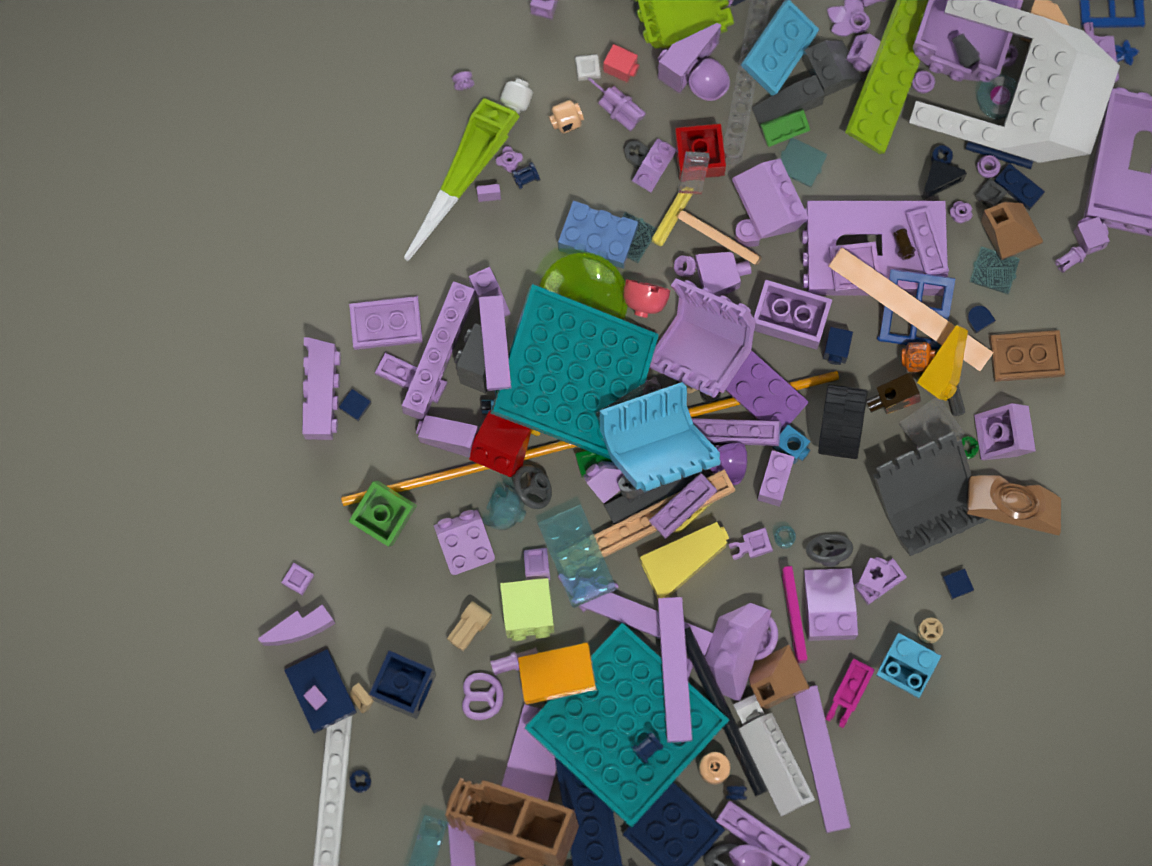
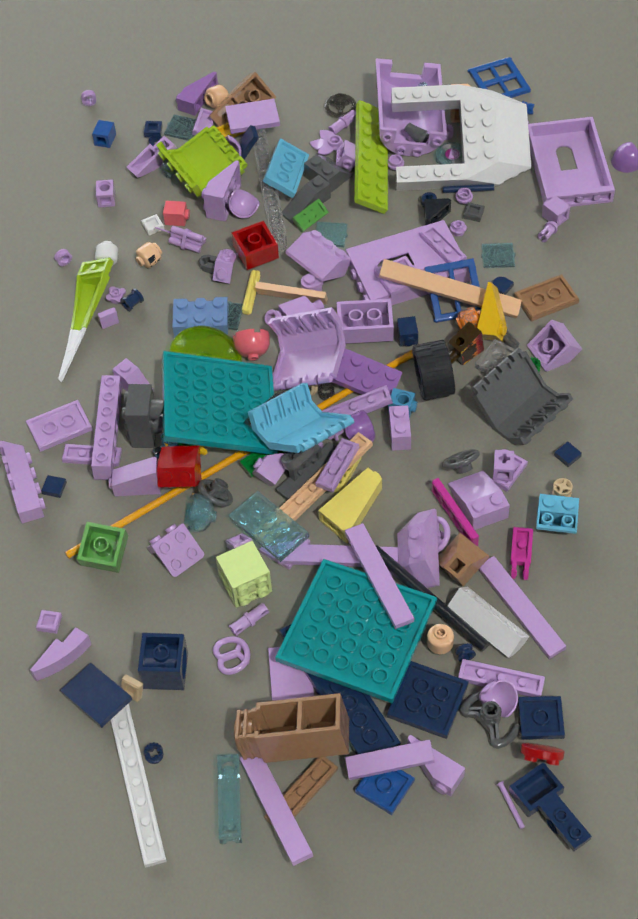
camera: 20 degrees left, 20 degrees down
(315, 698) = (93, 697): lavender piece -> none
(472, 621) = (203, 602): tan piece -> none
(495, 343) = (149, 390): lavender tile -> none
(556, 673) = (286, 609): light orange tile -> none
(647, 748) = (381, 635): dark blue bush -> none
(693, 172) = (256, 254): clear tile -> none
(748, 709) = (448, 588): white plate -> none
(756, 544) = (402, 477): lavender plate -> none
(792, 535) = (423, 460): clear light blue bush -> none
(904, 245) = (429, 253): dark brown pin -> none
(1010, 229) = (496, 225): medium nougat slope -> none
(1014, 504) = (583, 384): medium nougat slope -> none
(1019, 186) = (492, 201): dark blue plate -> none

